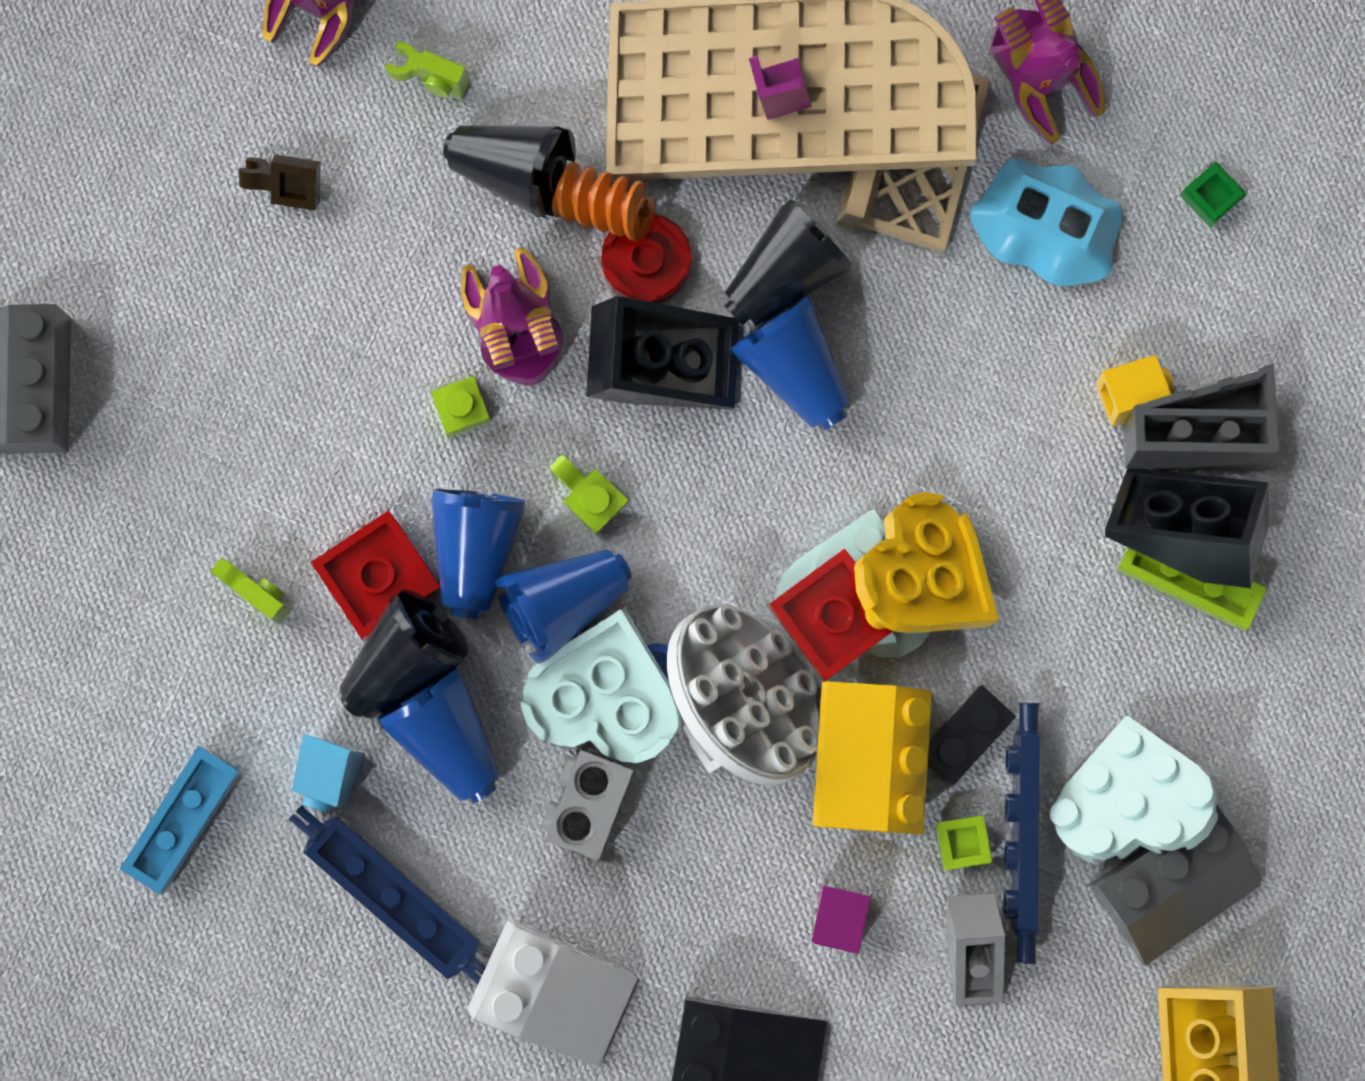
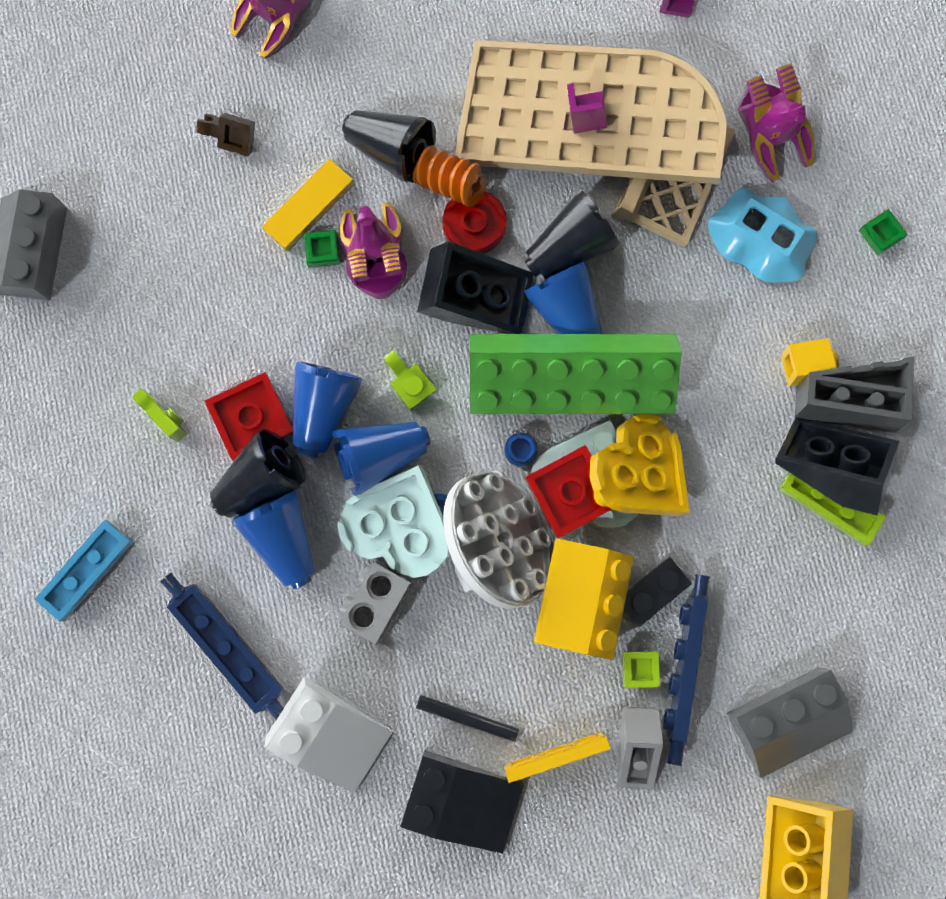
camera: 10 degrees right, 0 degrees up
(325, 773) = (190, 551): medium azure slope -> none
(410, 267) = (308, 204): none -> yellow tile
(437, 73) = (347, 73): lime plate -> none
(439, 325) = (322, 248): none -> green tile
(460, 406) = (328, 307): lime plate -> none
(737, 944) = (467, 718): none -> black bar
(756, 567) = (520, 449): none -> blue plate
(814, 453) = (574, 373): none -> bright green brick
(840, 919) = (544, 712): magenta panel -> none
(865, 976) = (556, 757): none -> yellow tile
(1134, 796) = (771, 654): light aqua plate -> none

